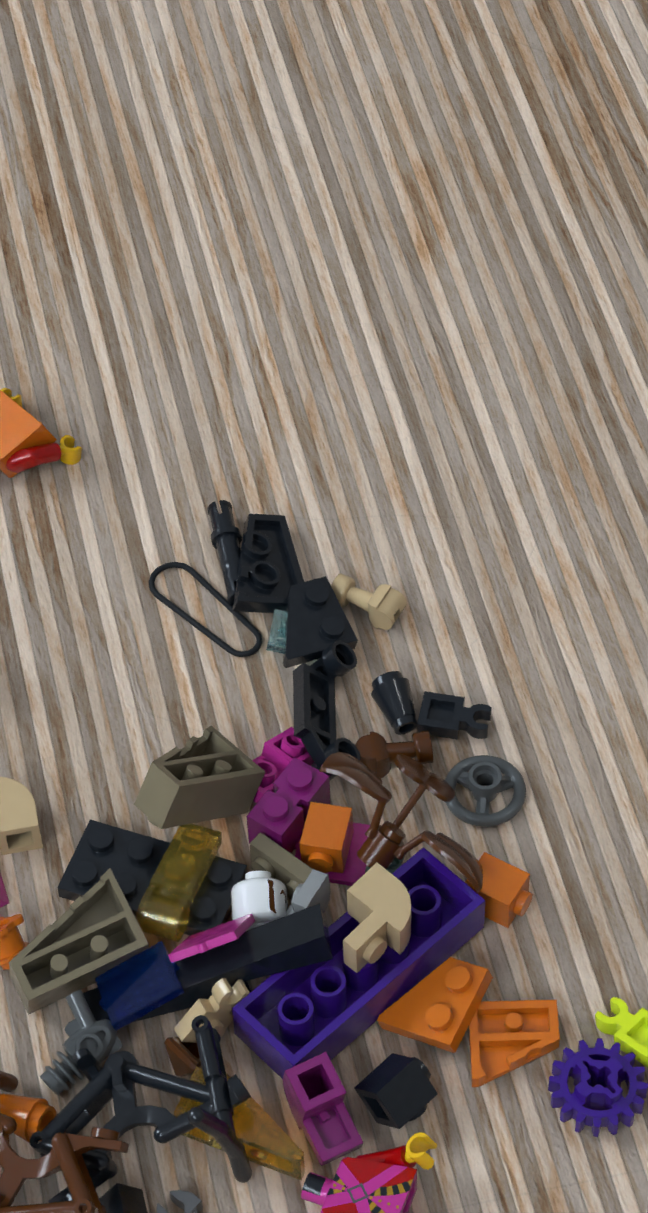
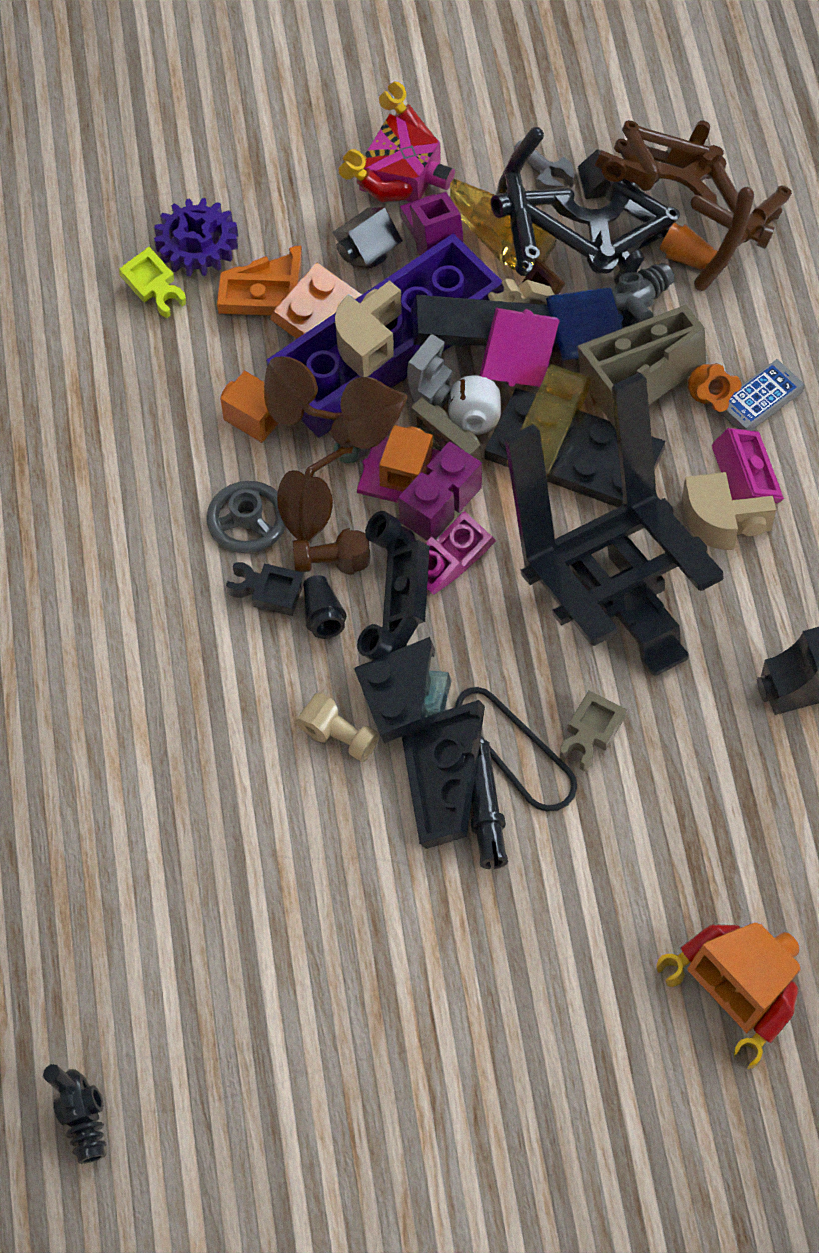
camera: 175 degrees left, 10 degrees up
(105, 724) = (566, 564): none -> black piece
(134, 620) = (593, 724): none -> dark tan plate
(199, 782) = (493, 506): dark tan wedge -> none
(535, 322) = (79, 1109): none -> black piece

